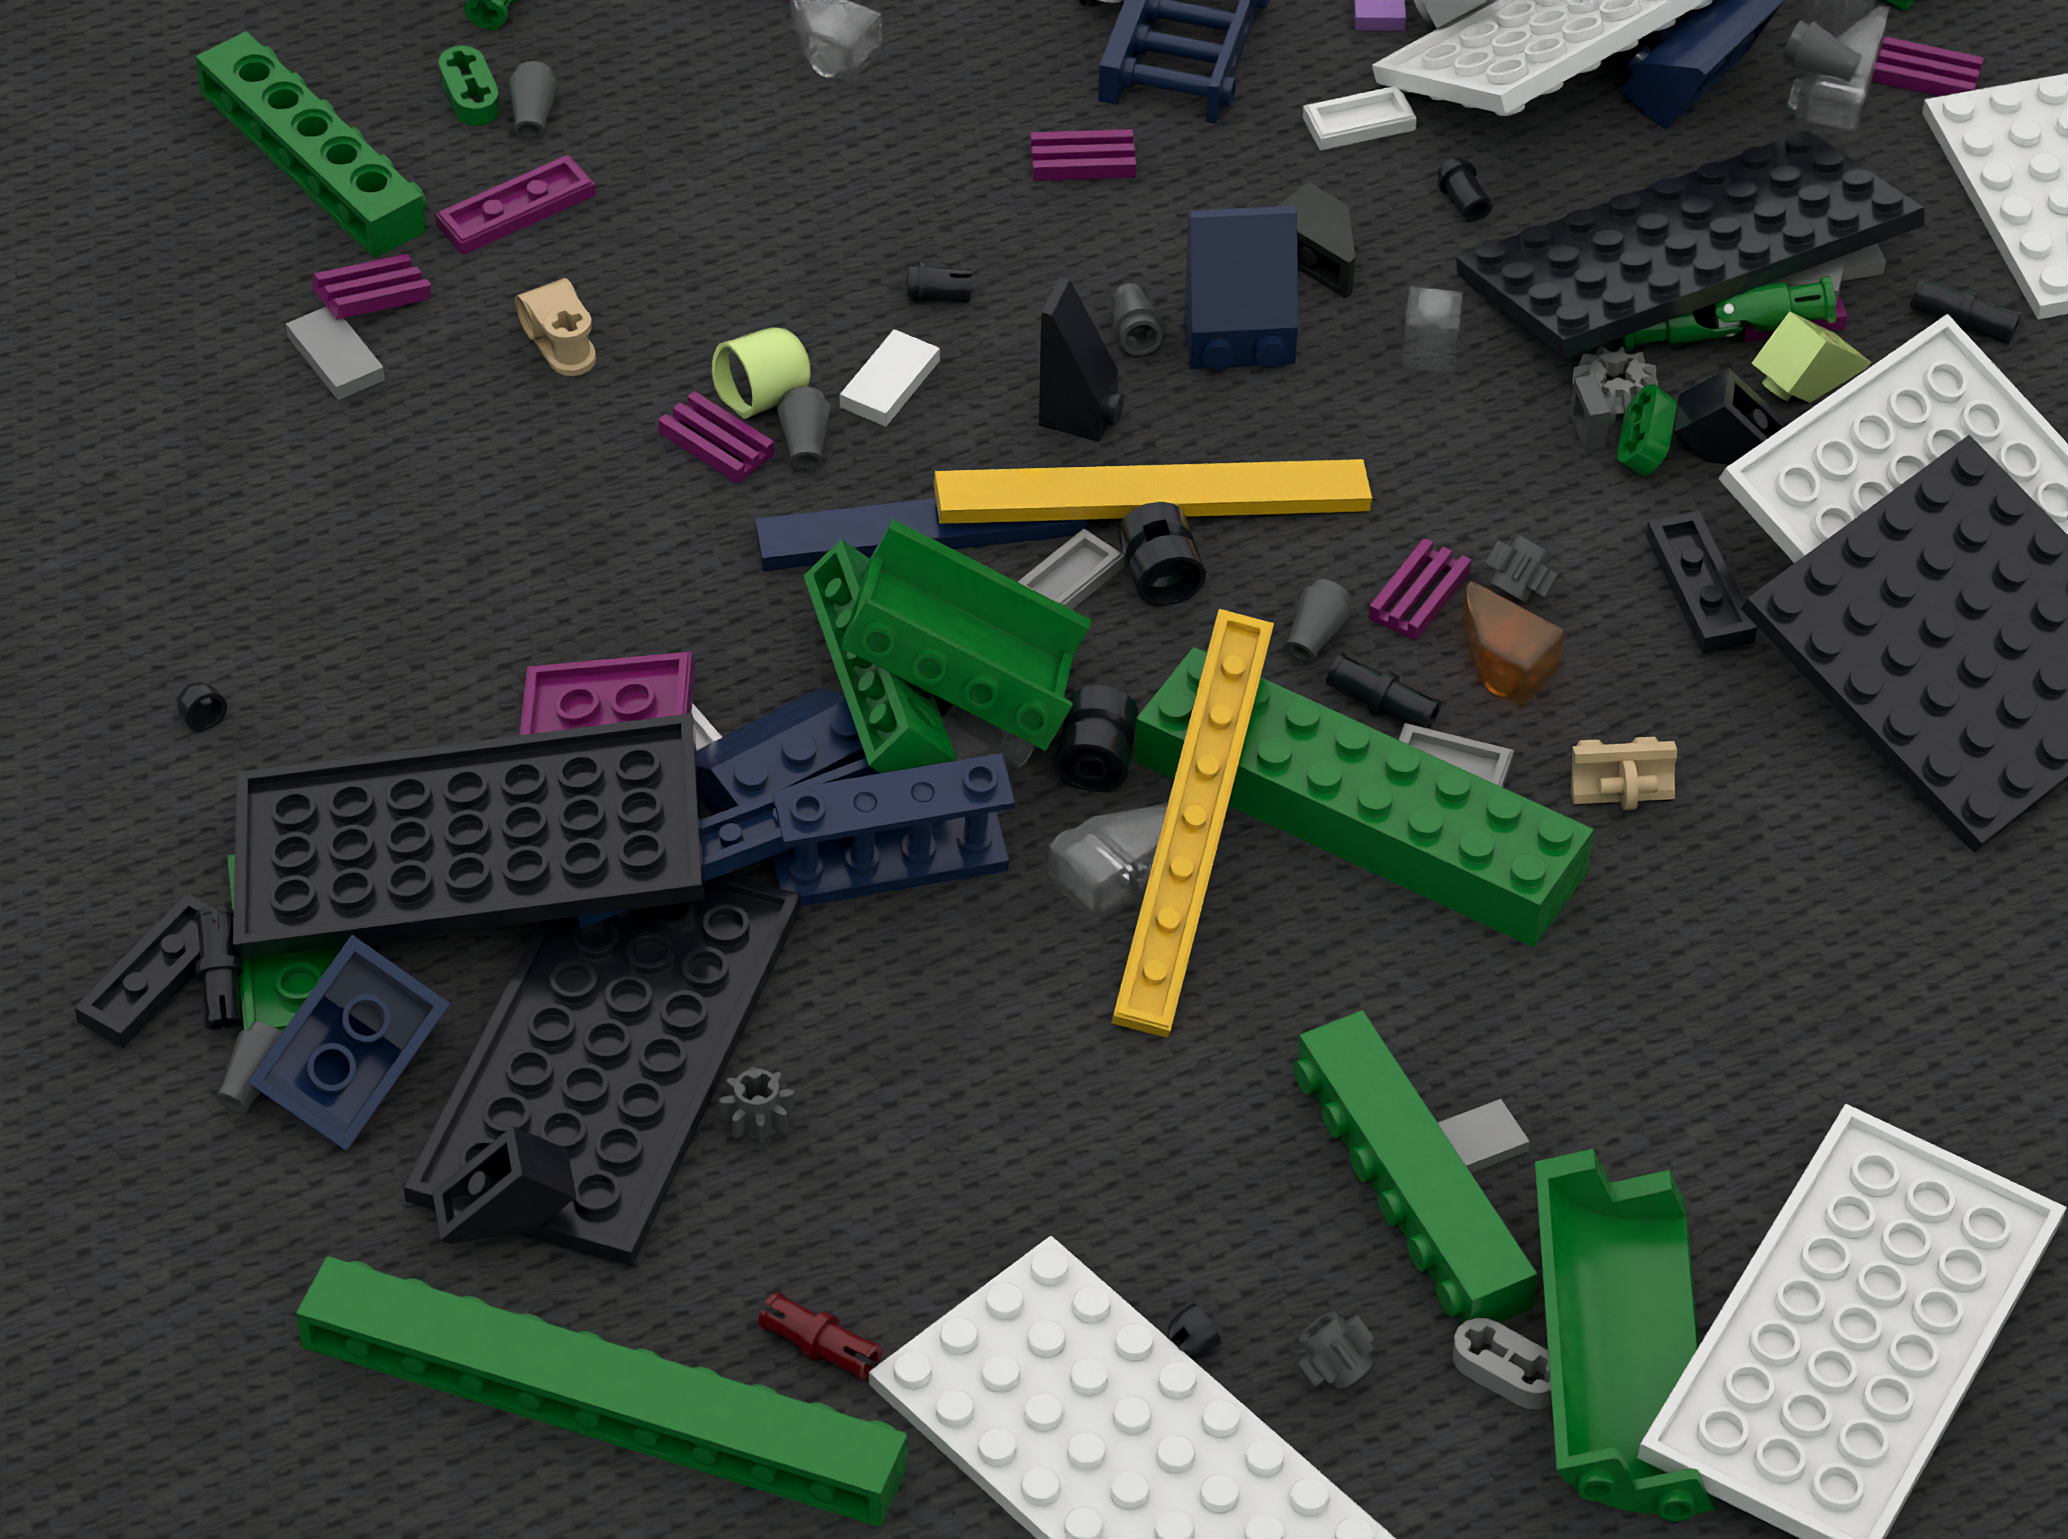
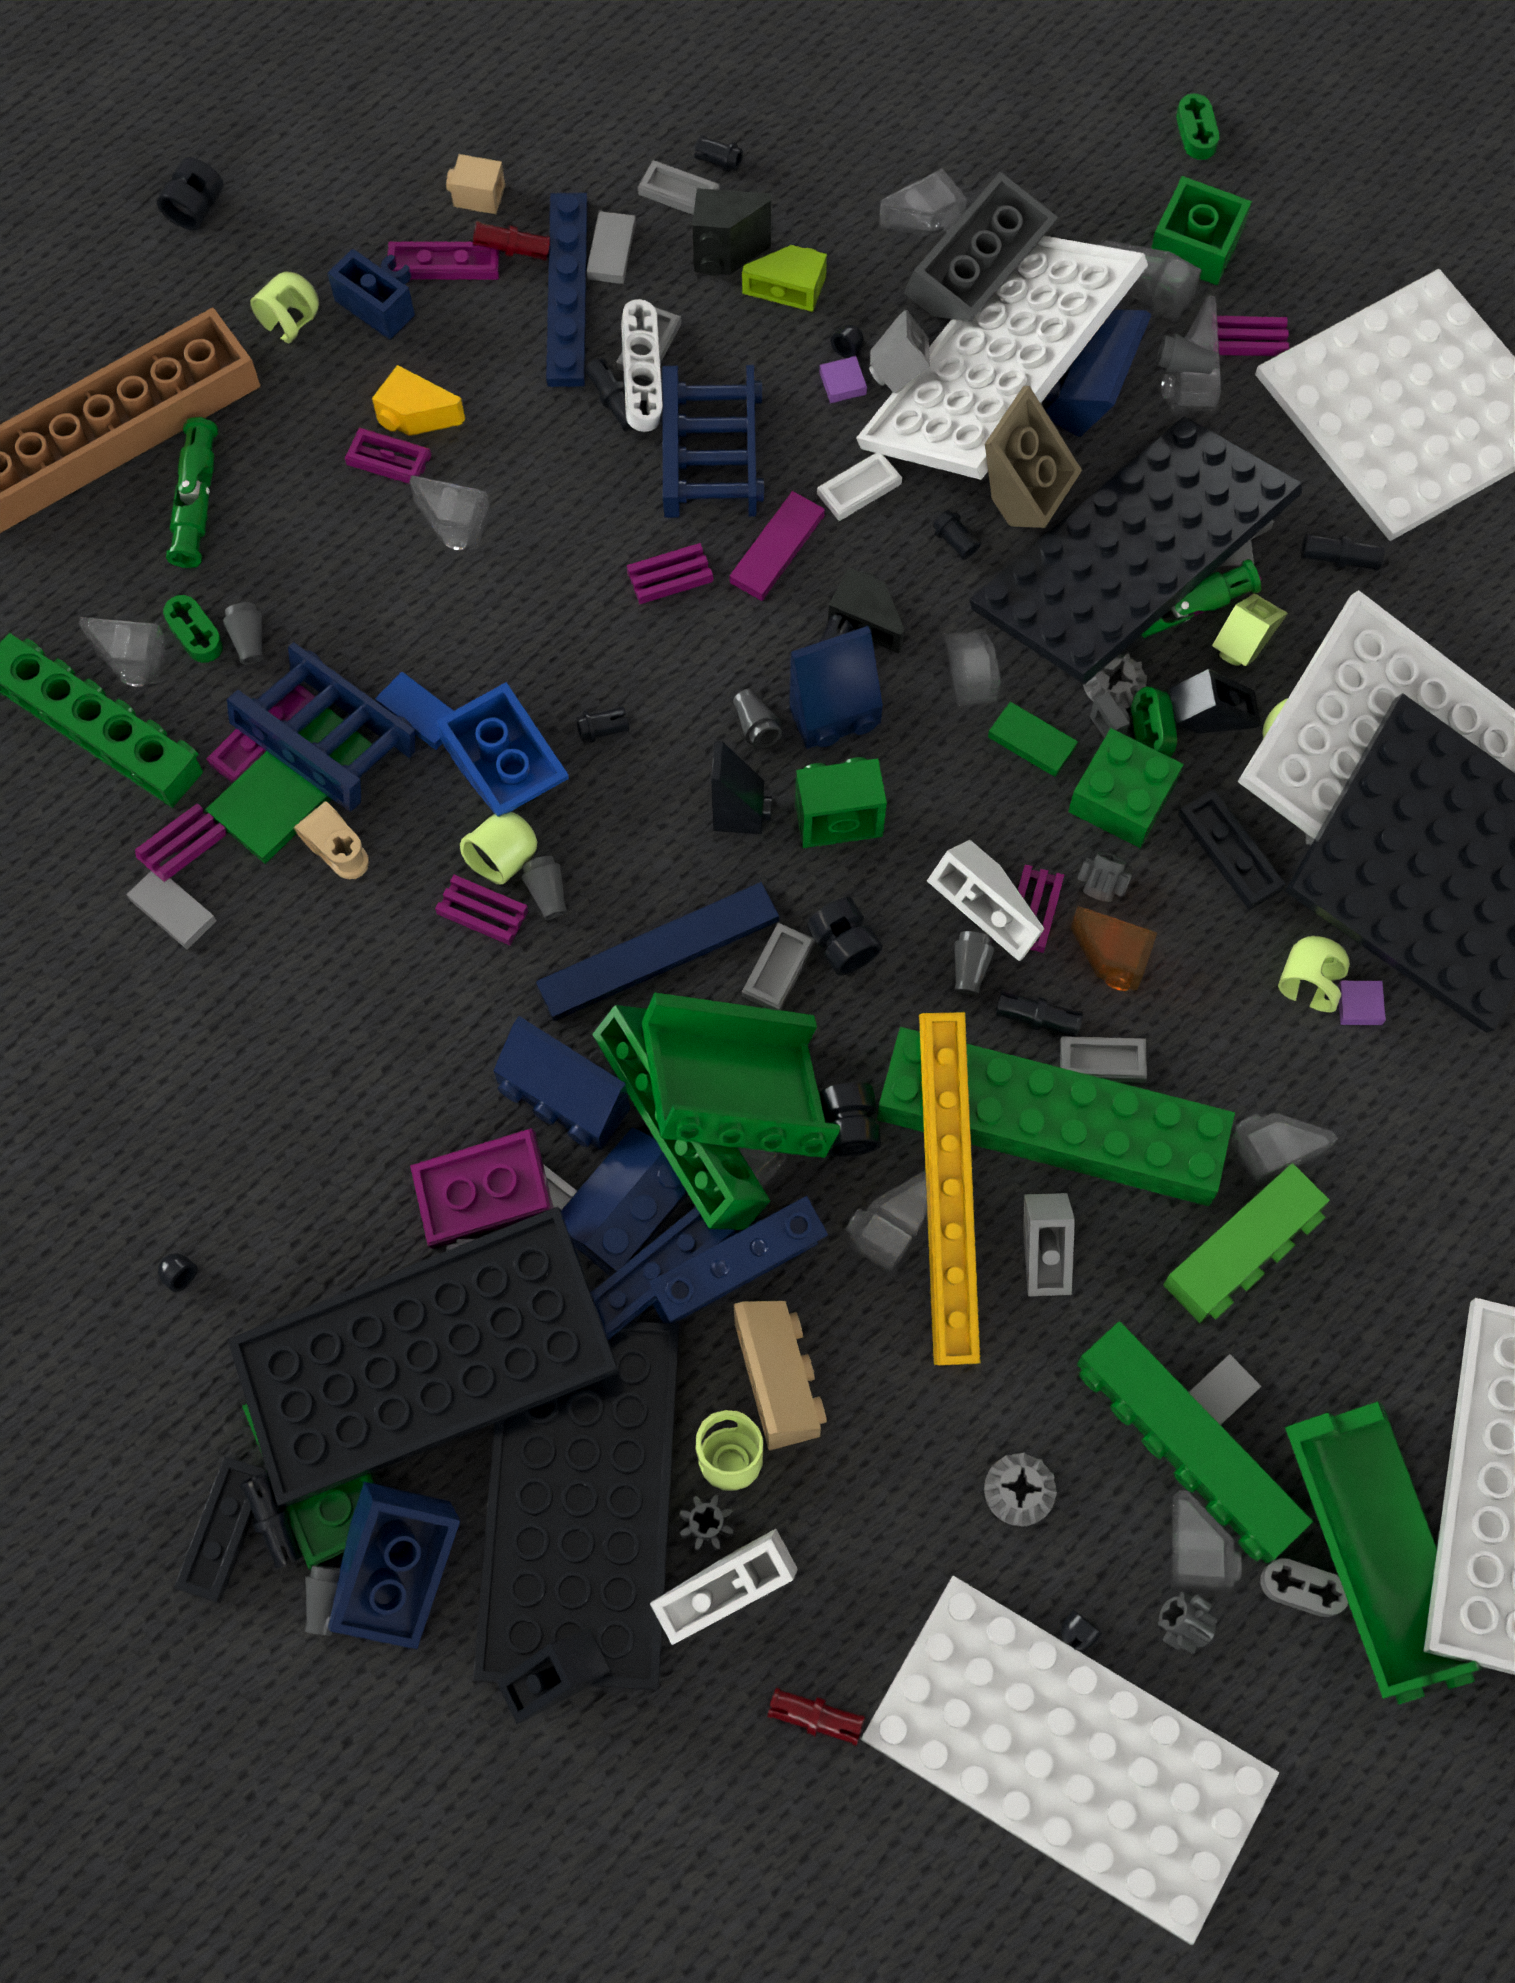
camera: 15 degrees left, 20 degrees up
(382, 83) = (128, 648): none -> clear slope
(568, 239) = (274, 798): none -> green tile
(572, 238) = (313, 759): none -> dark blue fence
(604, 1390) = (673, 1816): green brick -> none
(715, 224) = (417, 705): none -> blue tile
(747, 615) = (561, 1085): none -> dark blue slope
(757, 1165) = (725, 1587): none -> white slope
(797, 265) = (500, 750): none -> blue slope
(814, 1047) = (728, 1469): none -> yellowish green helmet
(889, 377) = (592, 819): white tile -> none
(905, 967) = (778, 1372): none -> tan slope
(1118, 490) = (815, 879): yellow tile -> none
(1187, 1190) = (1004, 1502): none -> light grey gear
(1204, 408) = (840, 802): none -> green brick
(1230, 155) = (777, 546): none -> magenta tile
(1303, 927) = (1048, 1244): none -> light grey slope
(1355, 546) = (987, 897): none -> white slope
(1384, 1281) = (1201, 1548): none -> clear slope
(1484, 418) = (1032, 739): none -> green tile
(1564, 984) = (1246, 1243): none -> bright green brick
(1573, 113) = (1028, 464): none -> dark tan slope
(1583, 484) = (1125, 788): none -> green brick
(1623, 772) = (1232, 1042): tan hips -> none
(1648, 894) = (1275, 1142): none -> clear slope
(1764, 707) = (1307, 961): none -> yellowish green helmet
(1815, 779) = (1361, 1003): none -> medium lavender tile

